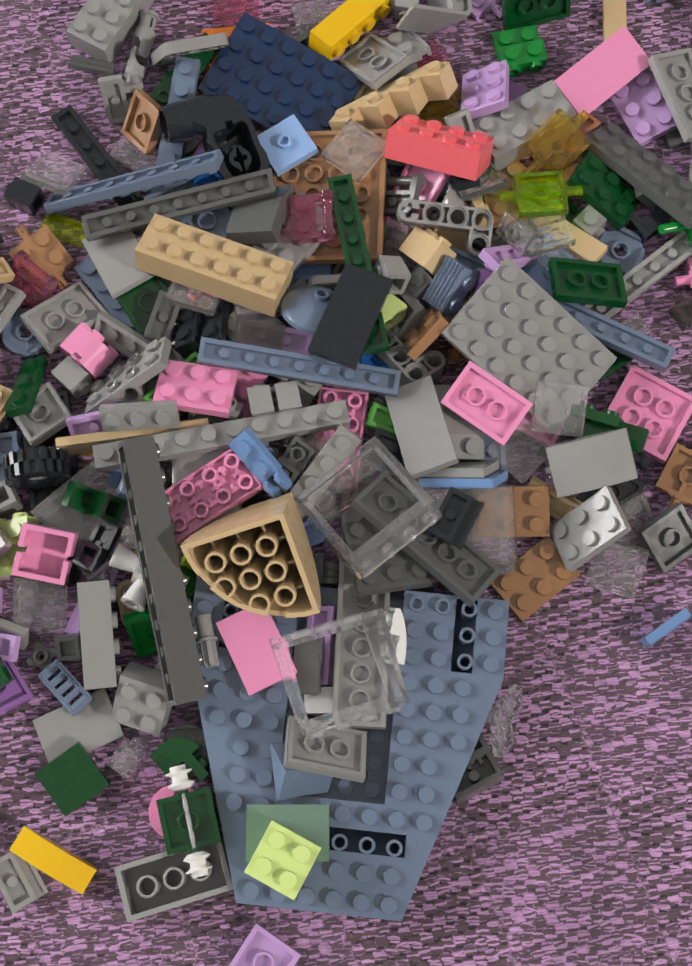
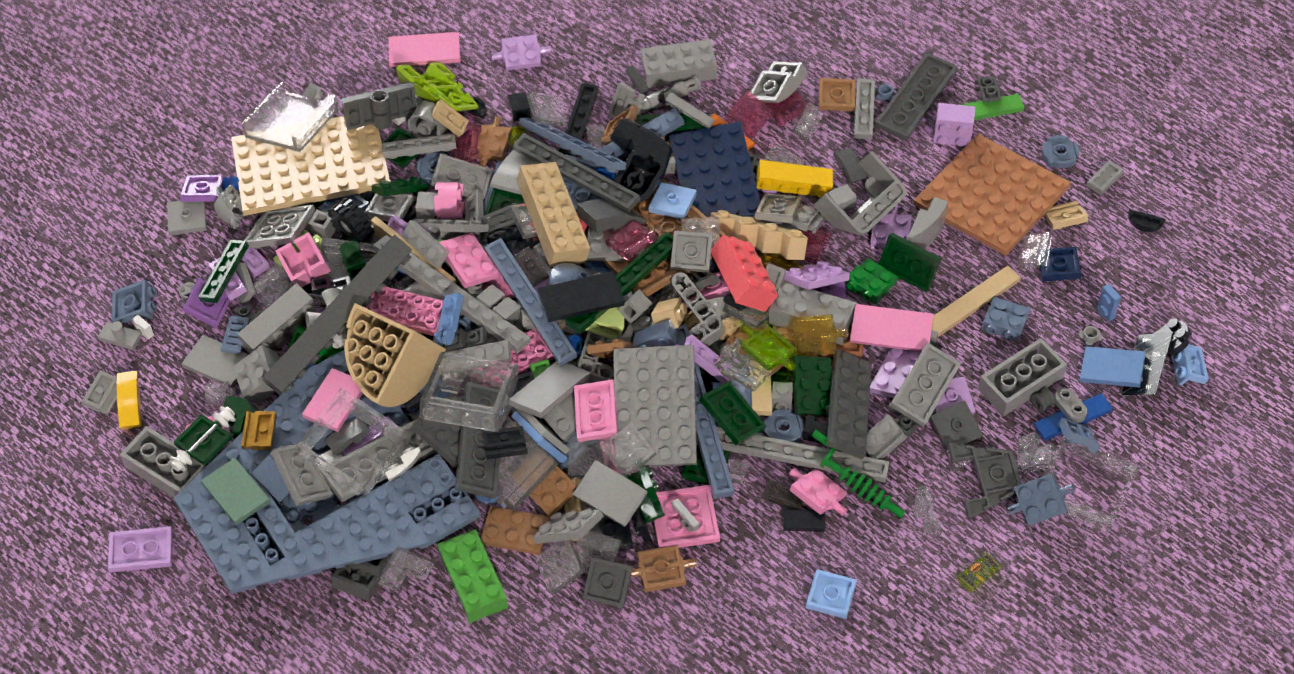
camera: 50 degrees right, 20 degrees down
(72, 778) = (184, 377): dark green tile -> none
(207, 640) = (317, 371): light grey axle -> none
(232, 755) = (259, 430): none -> pearl gold plate
(283, 859) = (215, 492): yellowish green brick -> none
(376, 173) = (691, 251): none -> light grey plate
(562, 659) = (472, 576): none -> bright green brick
(663, 414) = (687, 520): none -> light grey tile
(665, 628) = (544, 621): medium blue tile -> none

